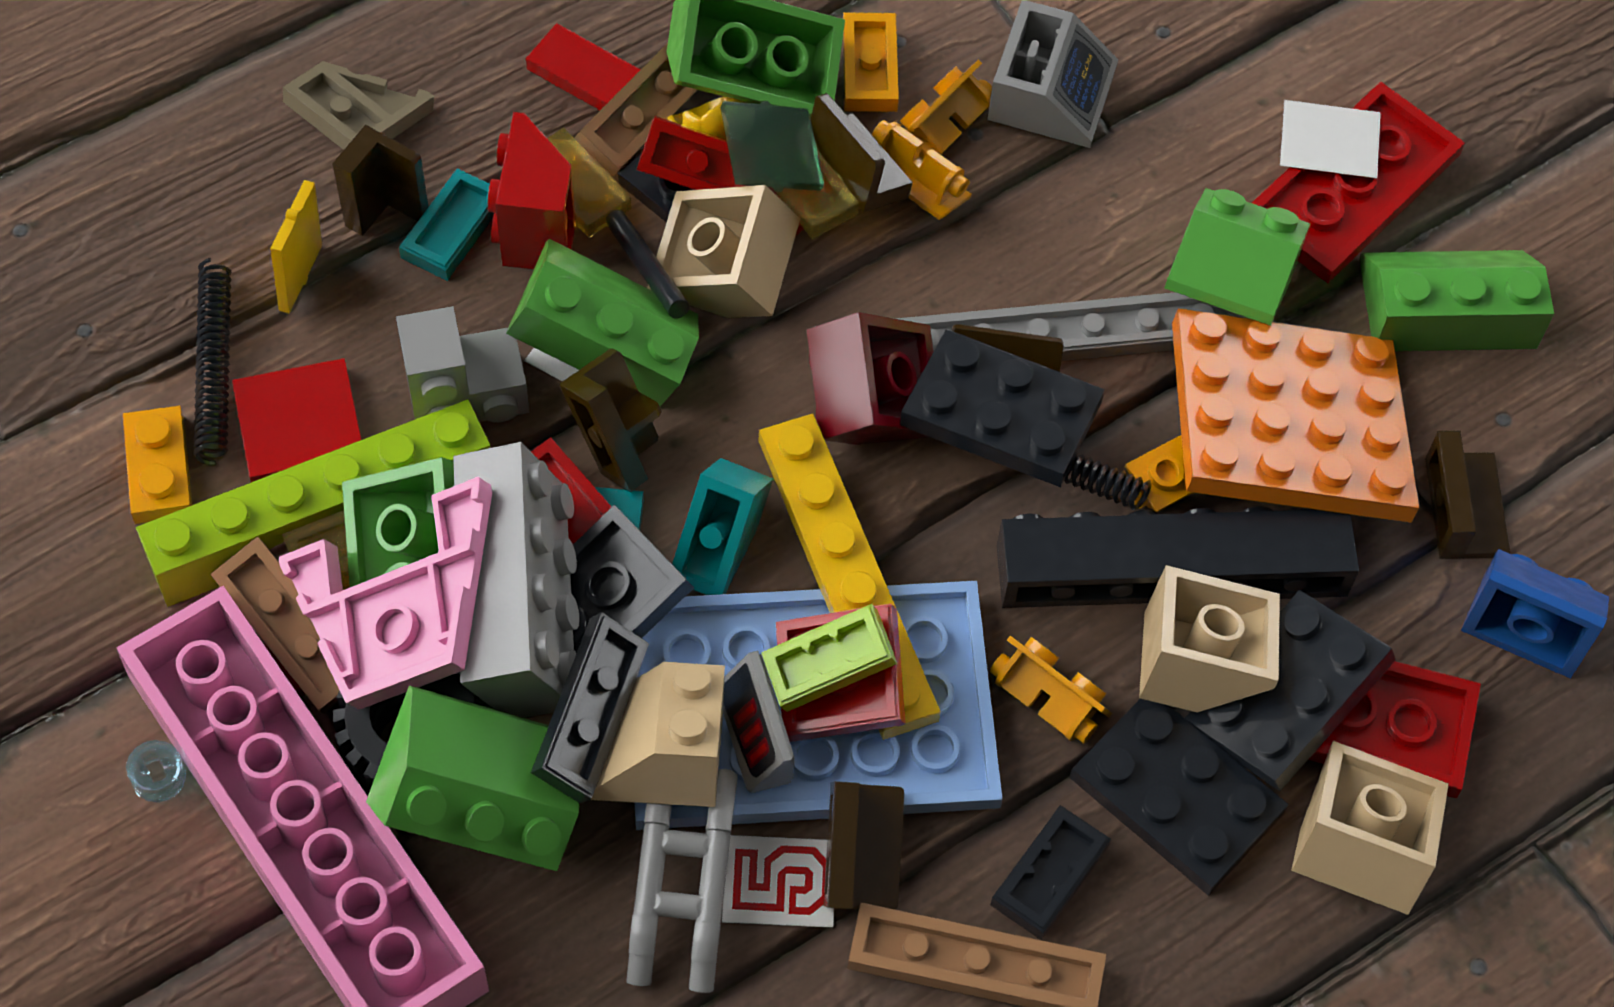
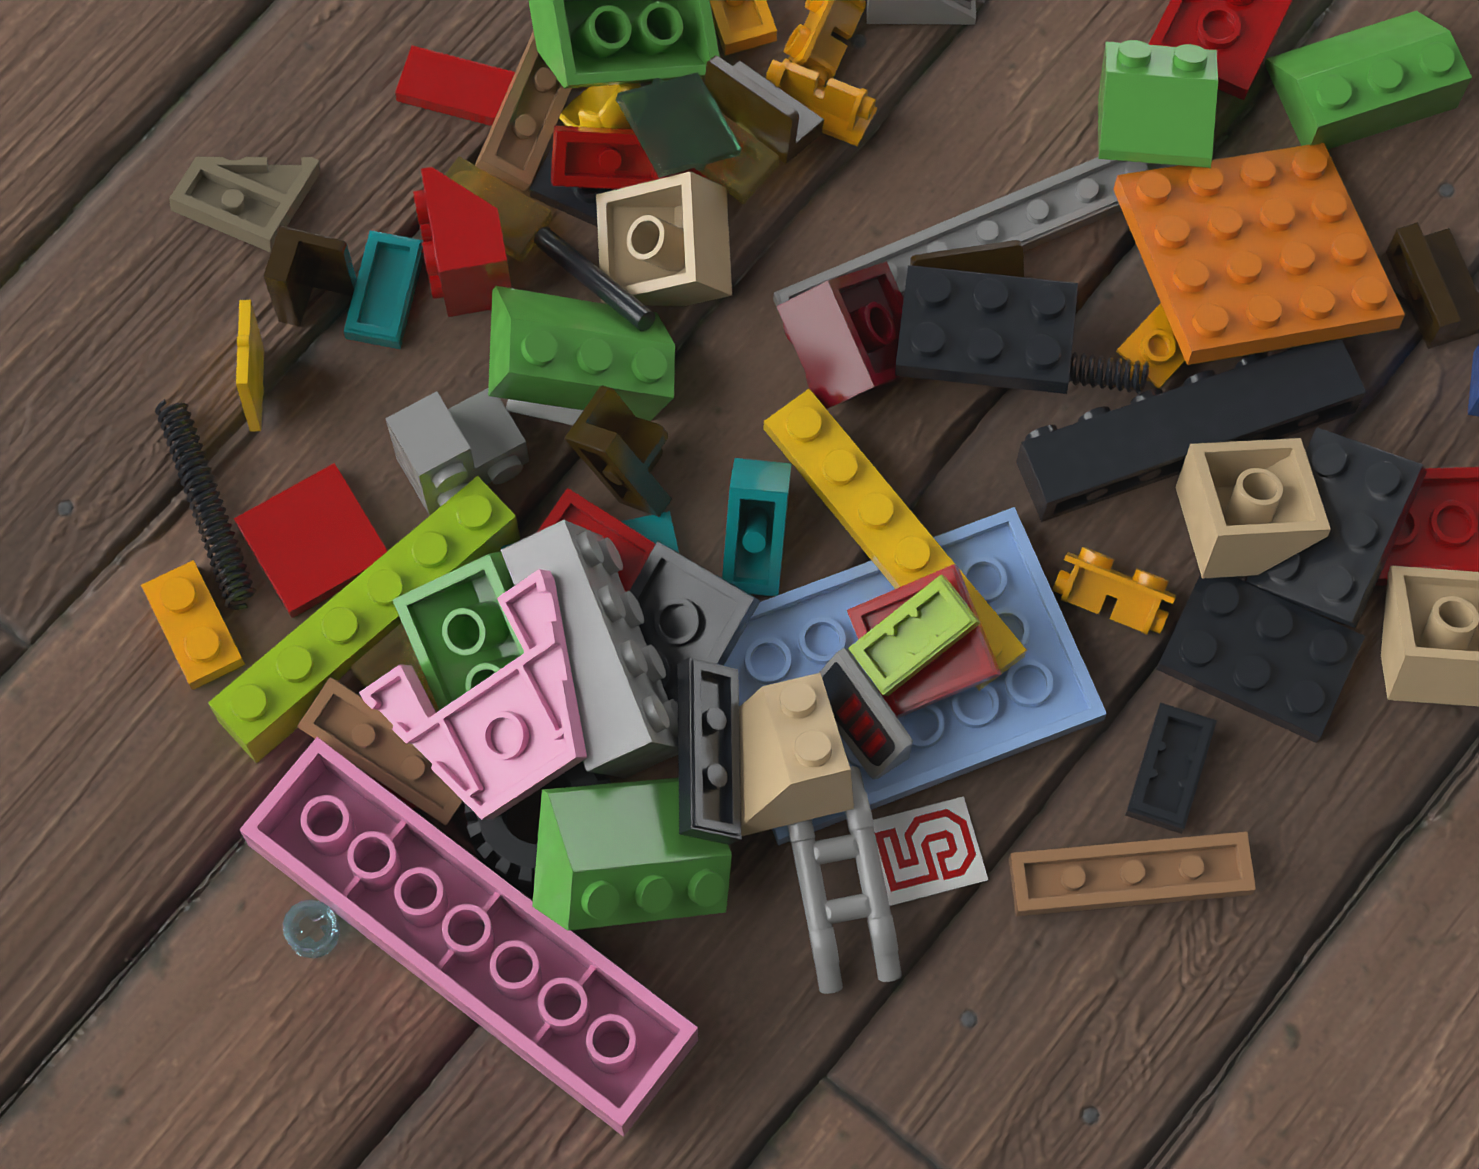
camera: 15 degrees left, 10 degrees up
(863, 845) = (994, 799): dark brown panel -> none

